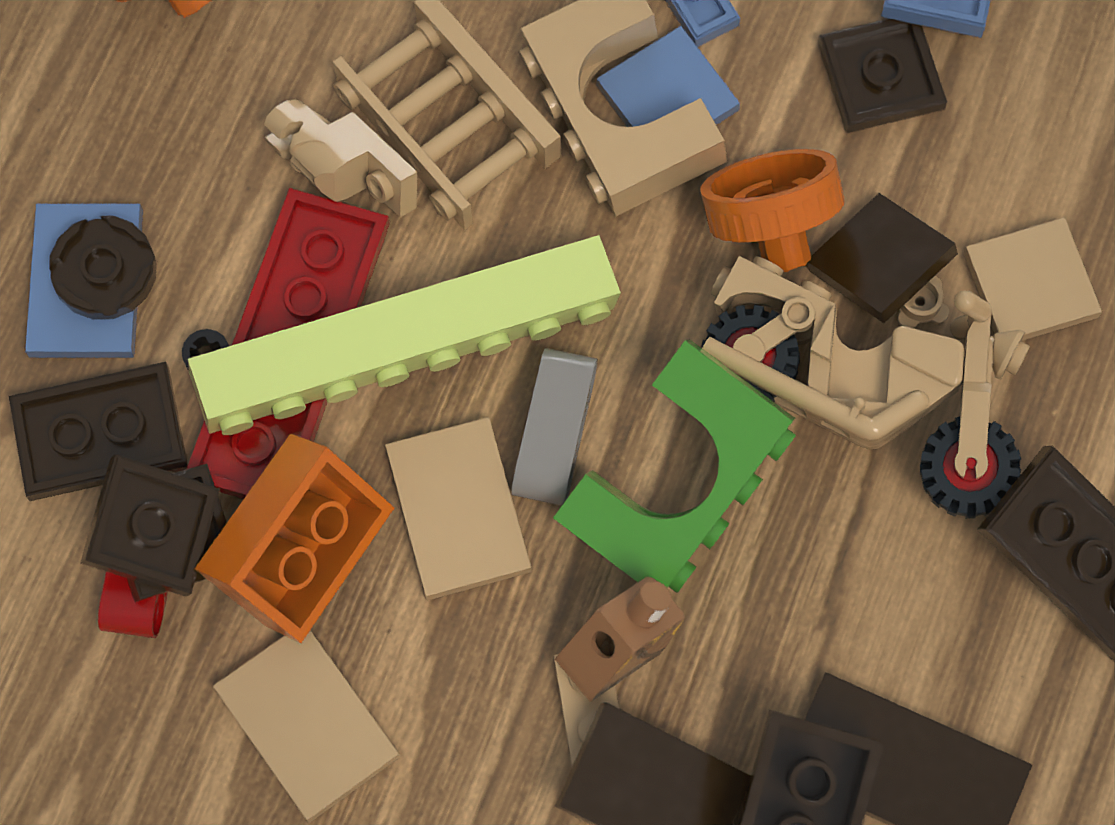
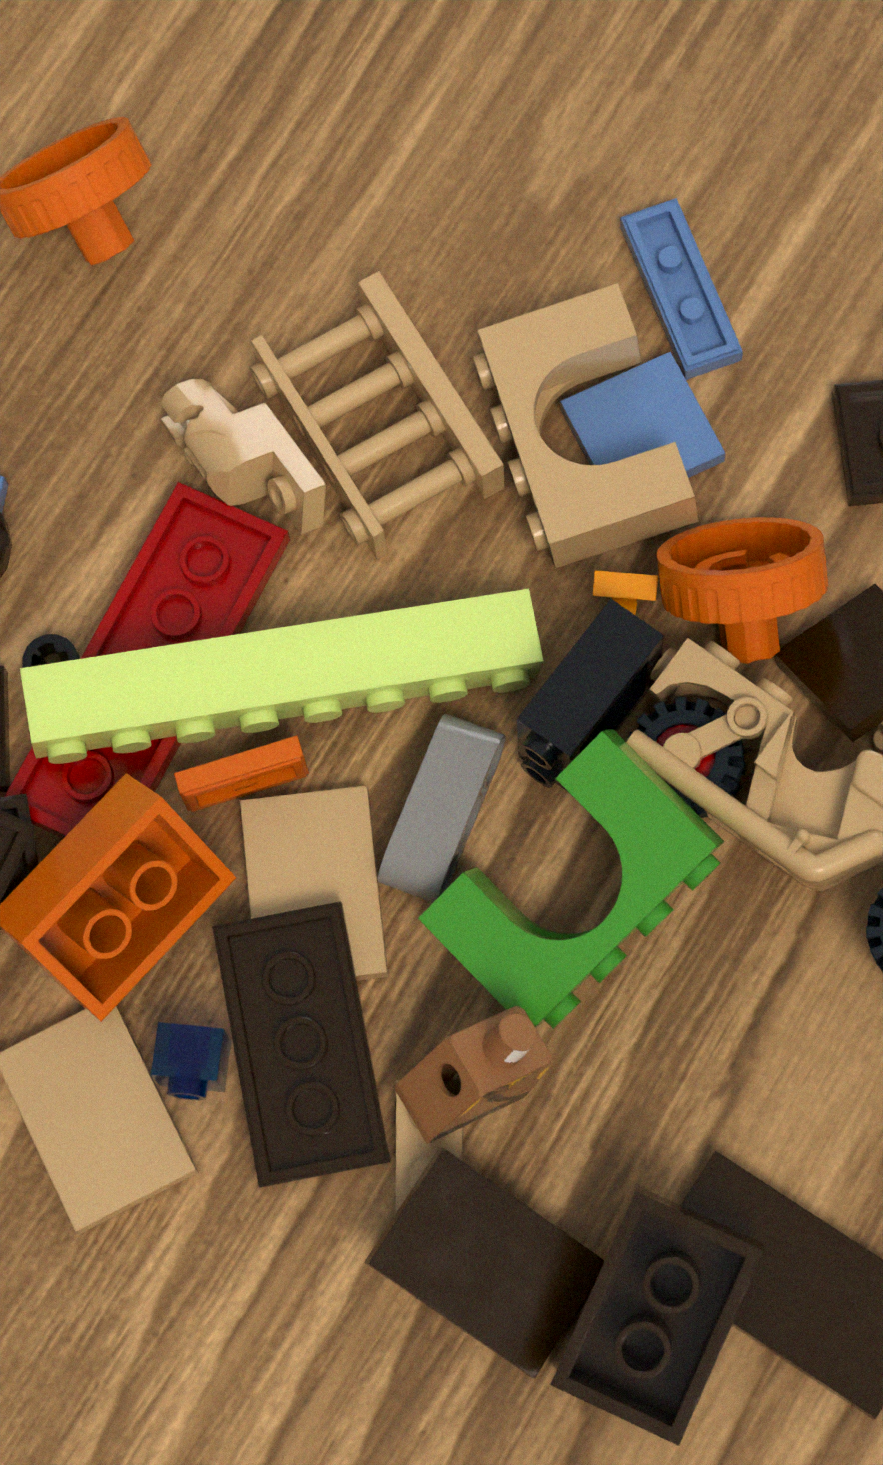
camera: 15 degrees right, 0 degrees up
(380, 664) = (191, 1060): none -> clear blue plate
(383, 422) = (241, 774): none -> orange tile
(470, 637) = (301, 1044): none -> dark brown tile
(662, 315) = (588, 692): none -> black window
(676, 227) = (625, 587): none -> light orange tile

